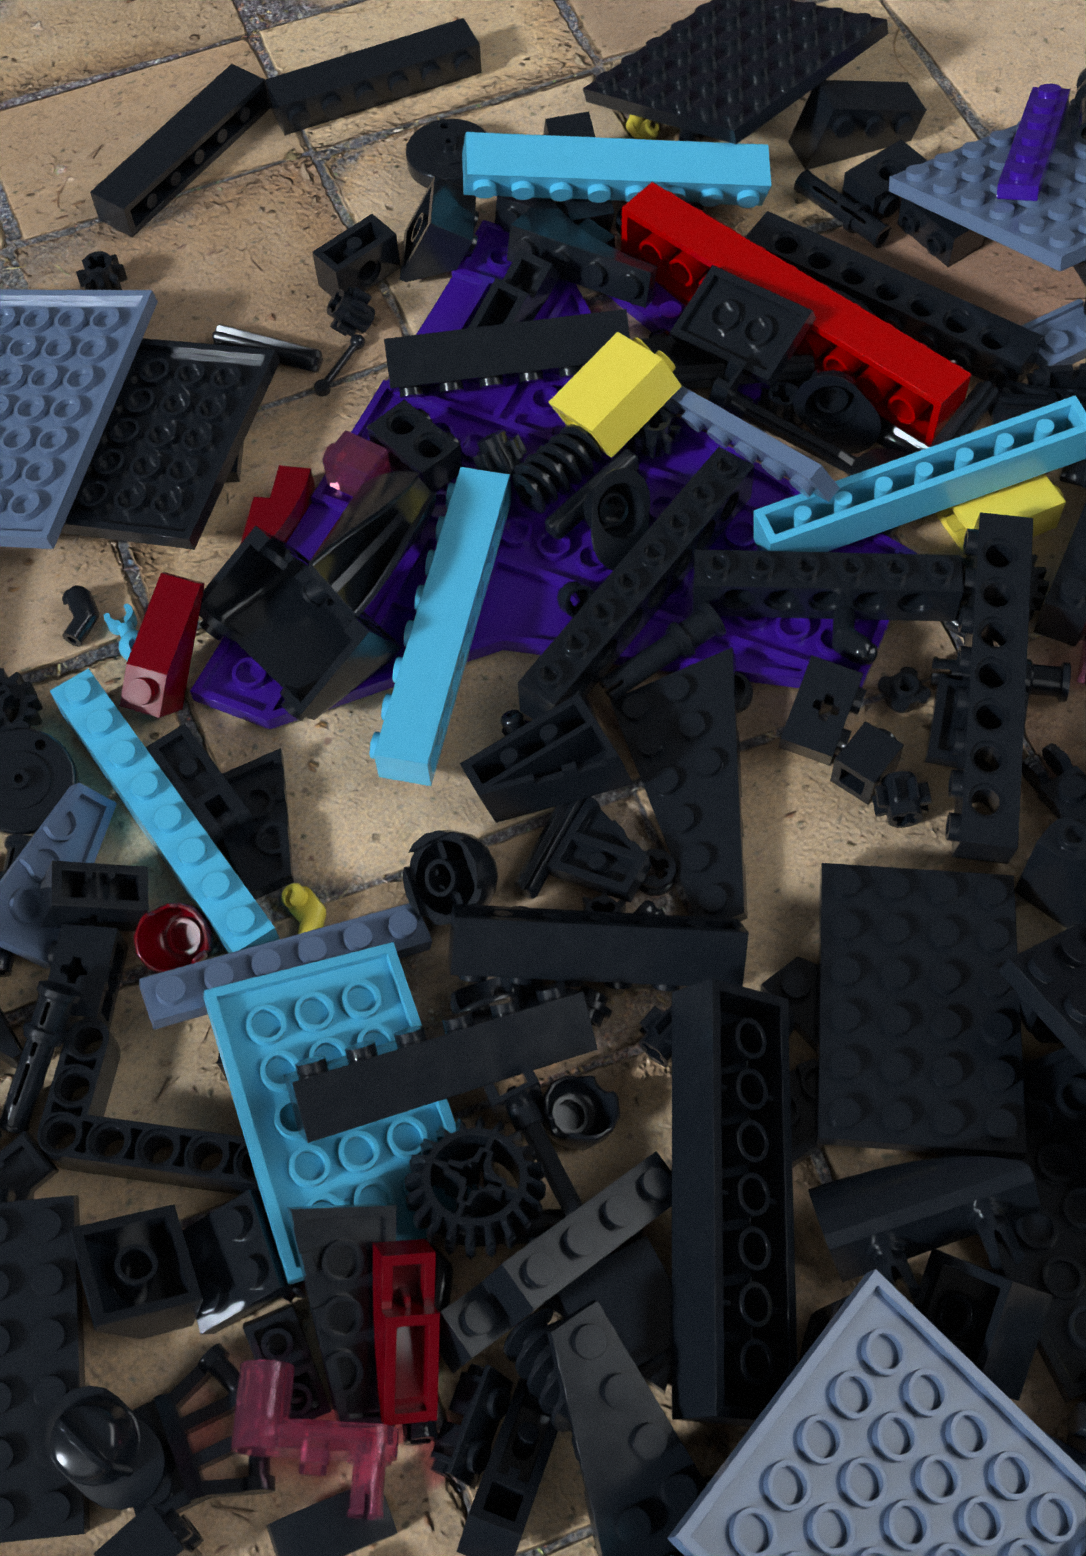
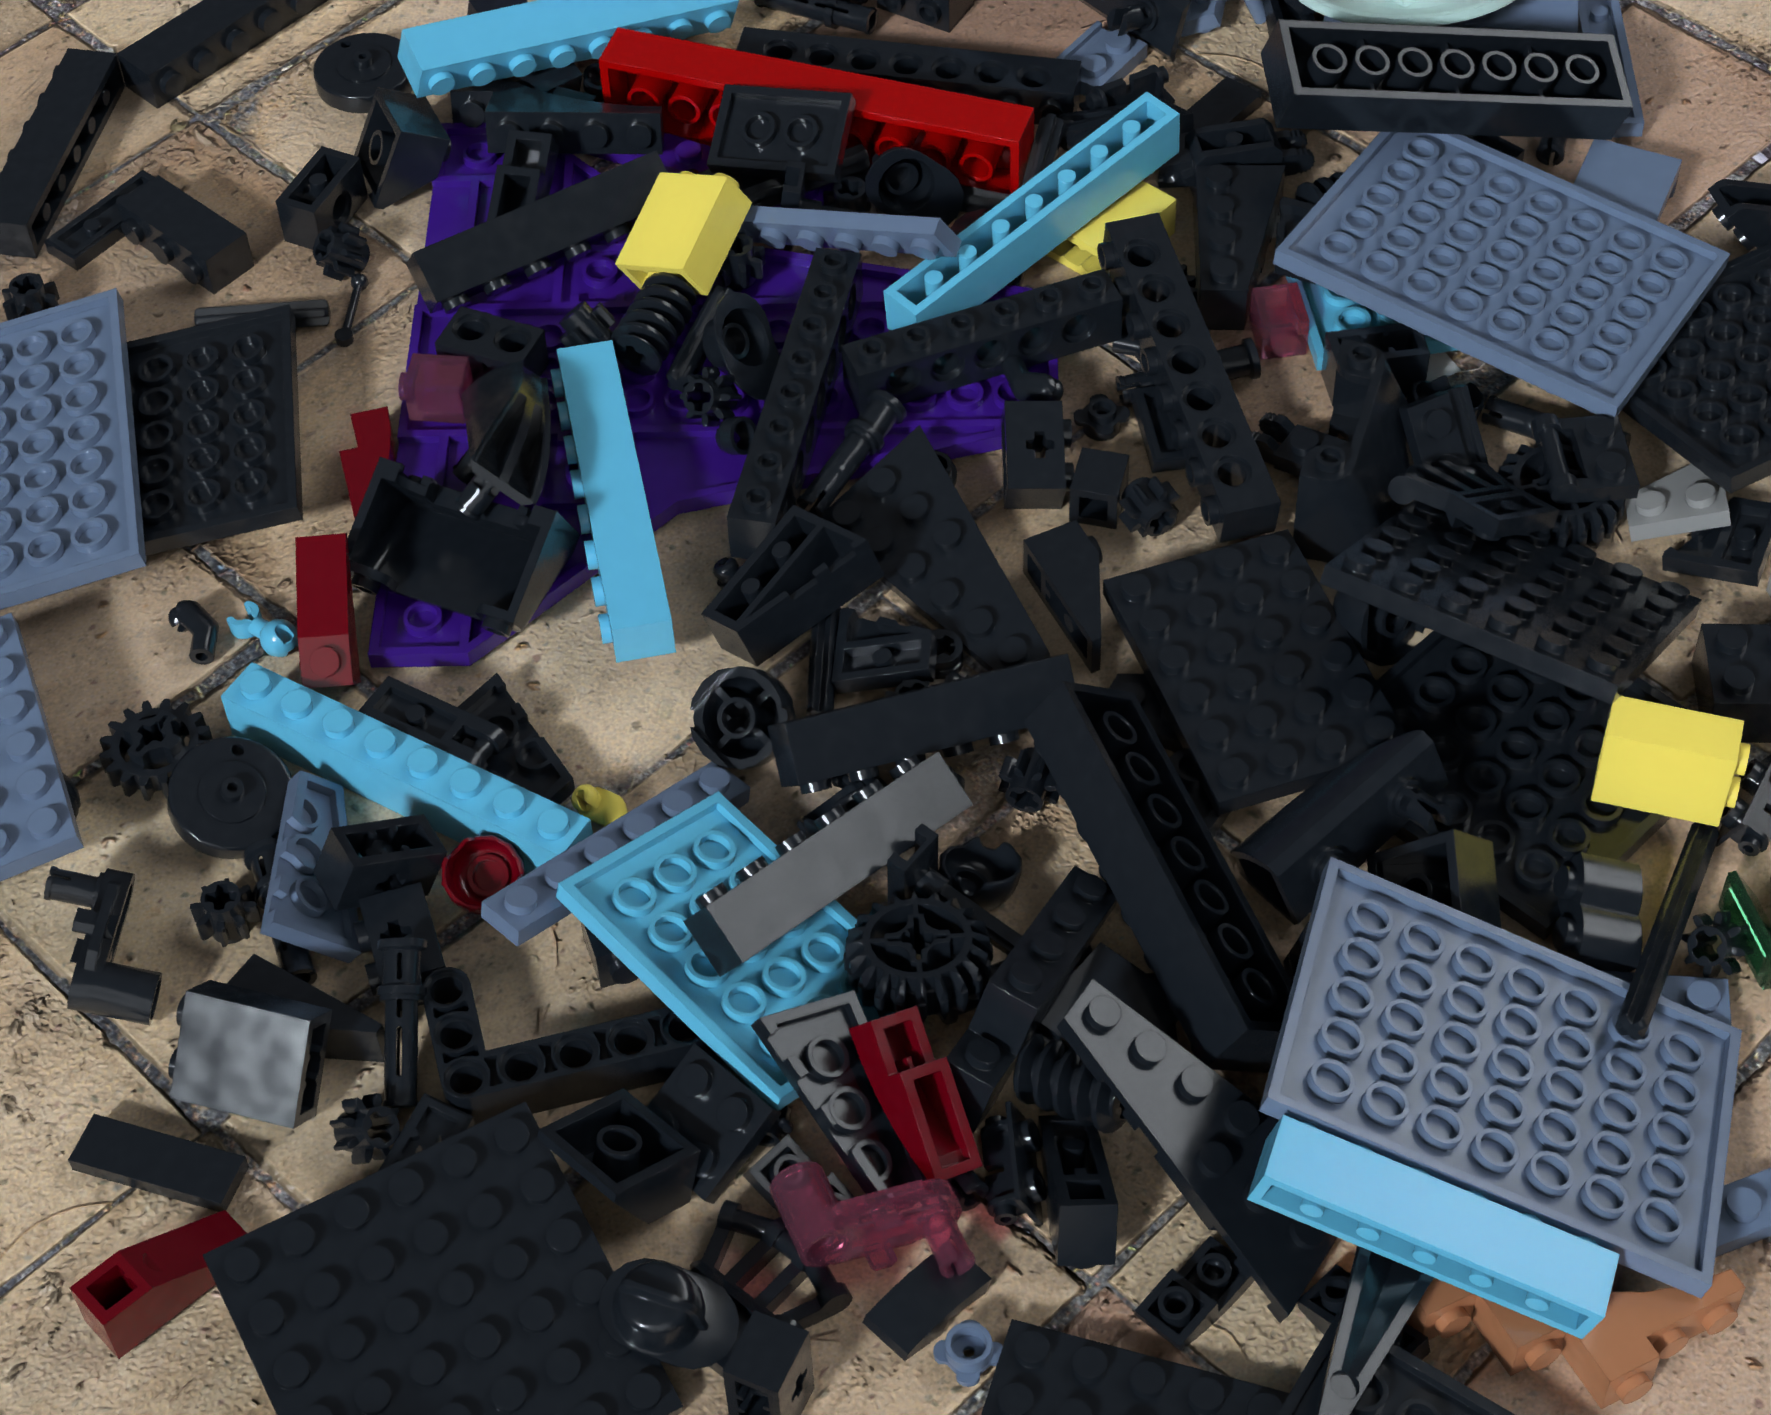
camera: 25 degrees left, 10 degrees down
(199, 222) = (95, 228): none -> black tile
(242, 256) = (185, 234): none -> black brick
(569, 555) = (710, 396): none -> black gear
(798, 844) = (1066, 576): none -> black slope

